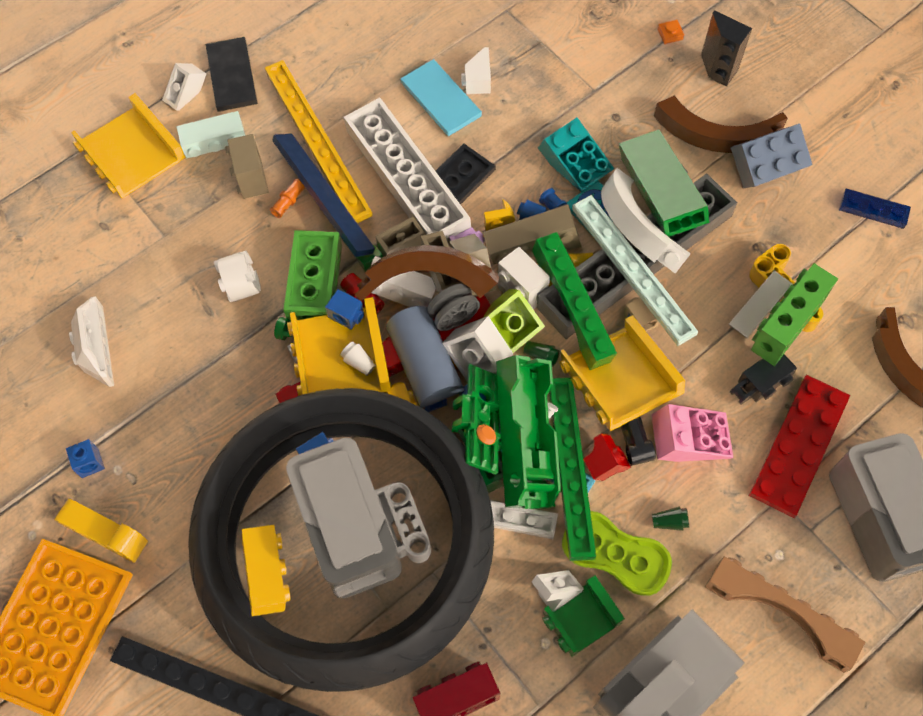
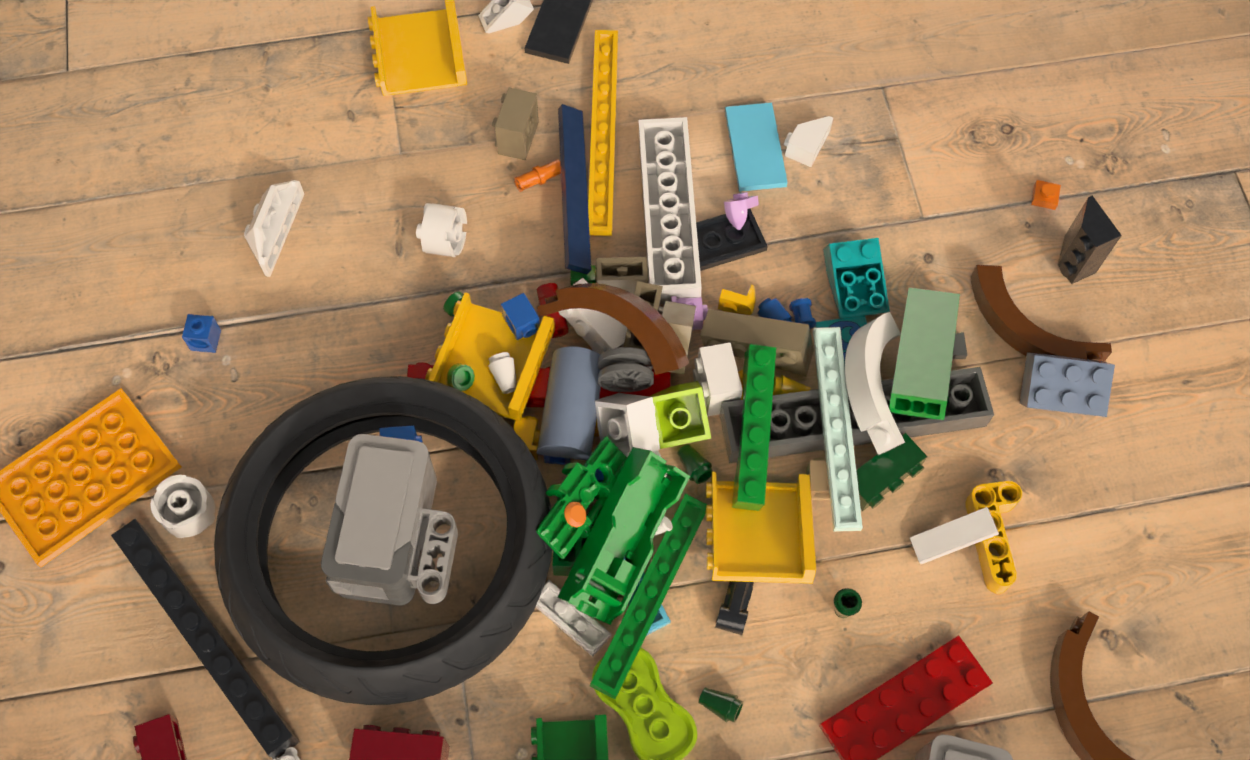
camera: 25 degrees right, 0 degrees up
(101, 530) = (177, 410): yellow beam -> none
(145, 594) = (170, 510): none -> white brick
(209, 134) = (500, 72): light aqua brick -> none
(264, 570) = (283, 528): yellow brick -> none
(312, 273) = (515, 263): bright green brick -> none
(326, 379) = (460, 377): none -> green tile
(458, 148) = (737, 208): none -> lavender plate
(557, 588) = (563, 706): white slope -> none
(606, 458) = (692, 605): red brick -> none
(684, 283) = (887, 472): none -> dark green brick
(691, 434) = (797, 630): bright pink slope -> none
(717, 394) = (848, 598): none -> dark green cone
(763, 379) = (910, 614): black brick -> none
(792, 313) = (975, 563): bright green brick -> none
(875, 208) = (1152, 500): clear blue plate -> none

